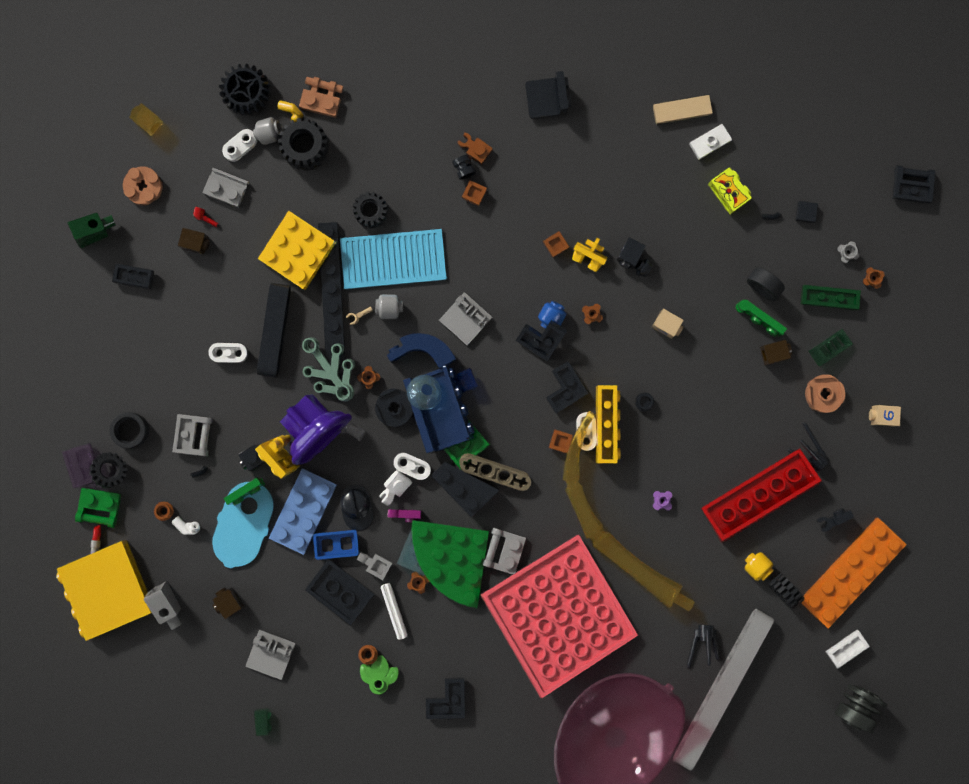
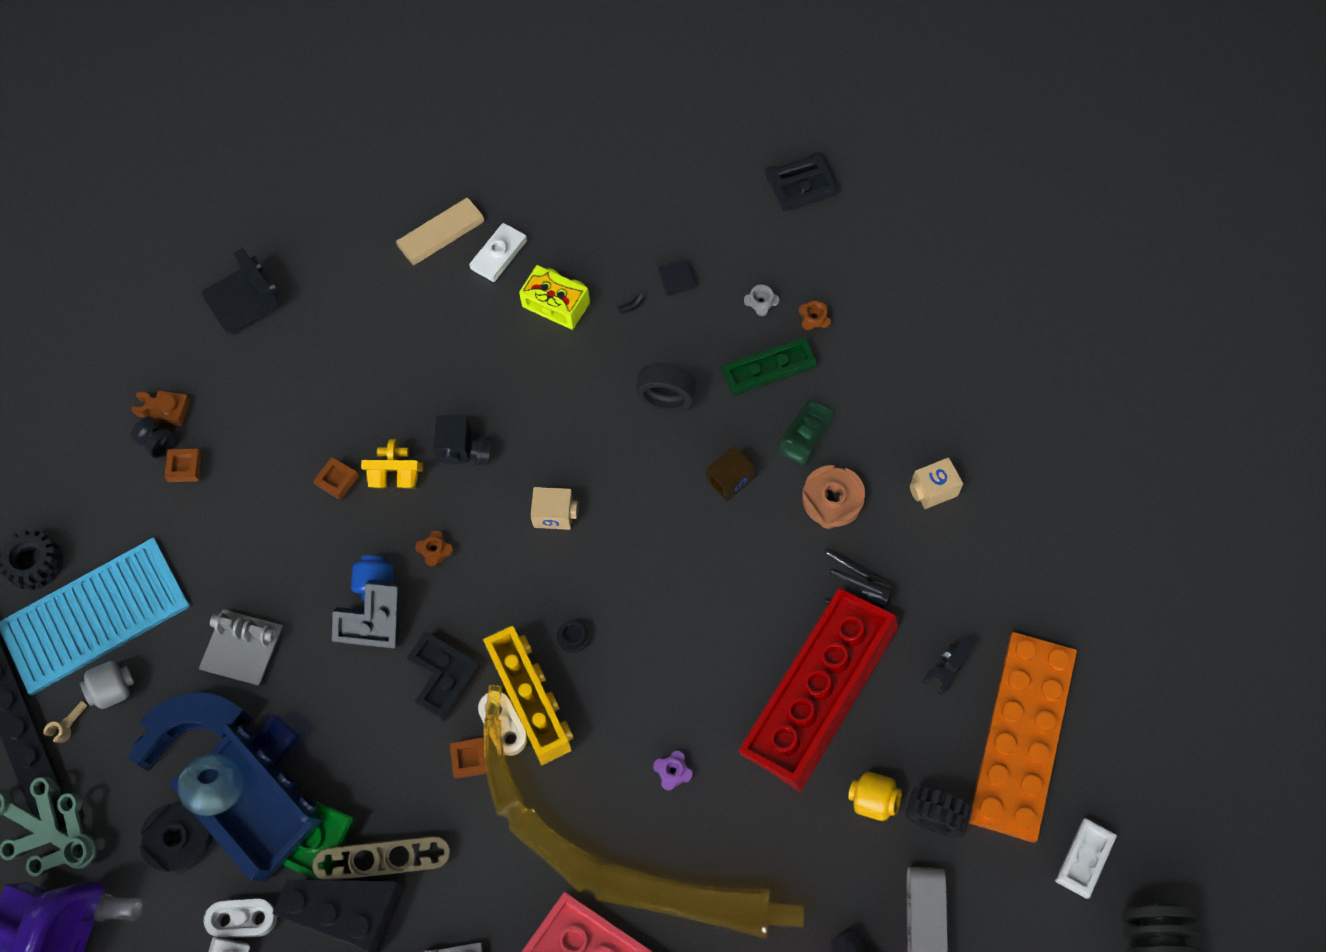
camera: 20 degrees left, 20 degrees down
(368, 382) = (107, 807): dark orange plate -> none
(759, 317) = (683, 437): green plate -> none

